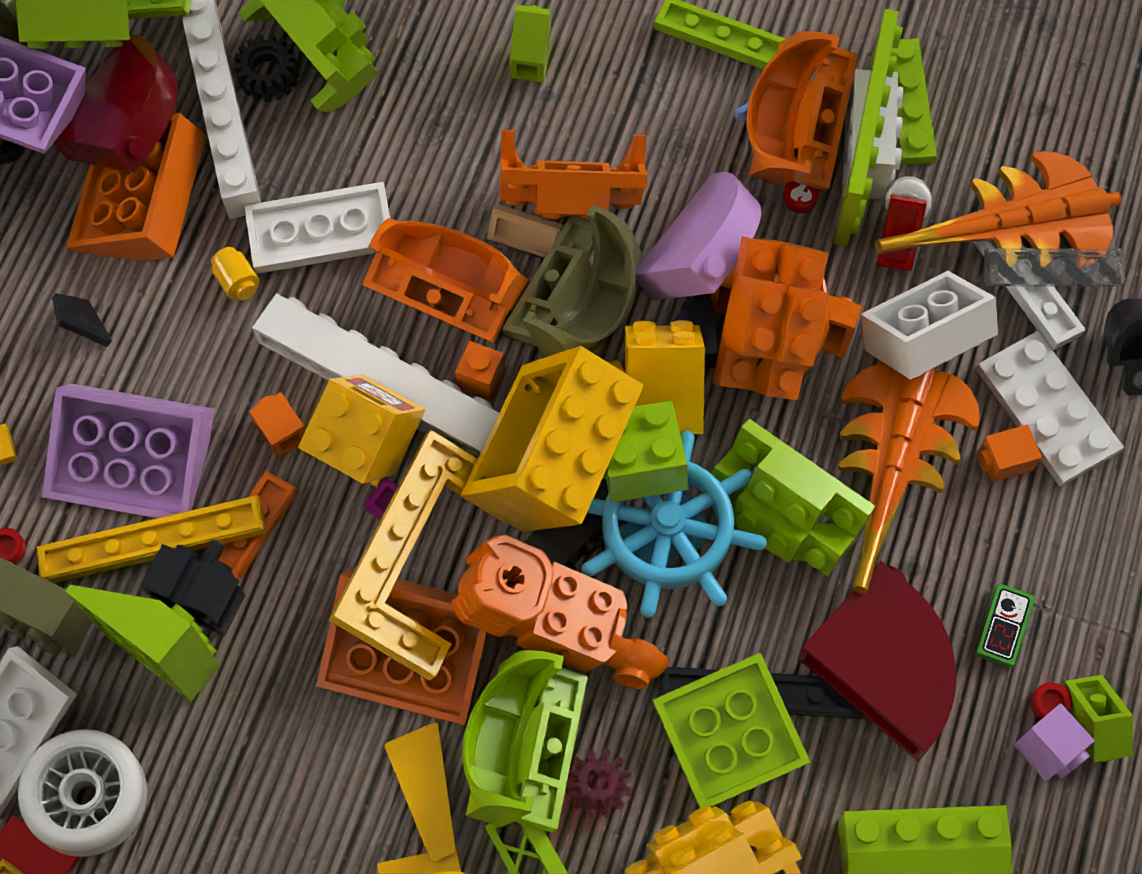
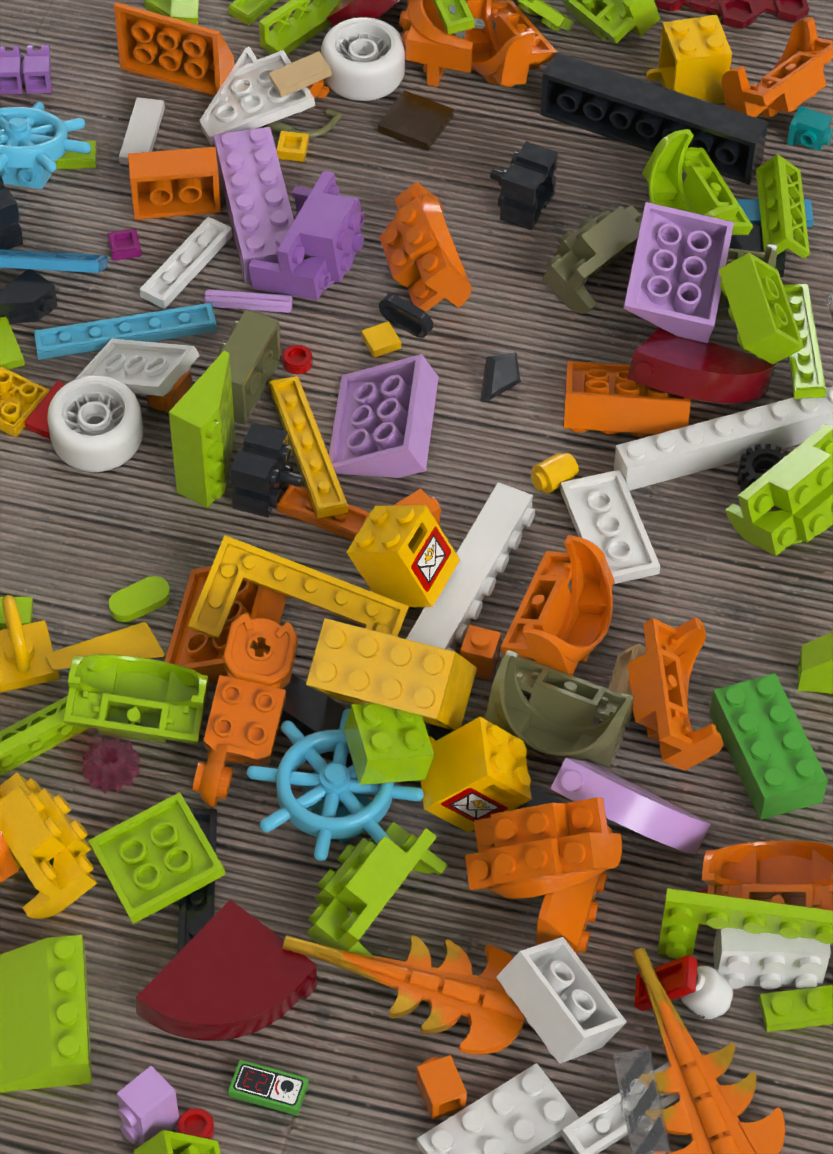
camera: 85 degrees right, 15 degrees down
(354, 748) = (139, 599): none -> lime tile
(603, 111) = (768, 746): none -> bright green brick

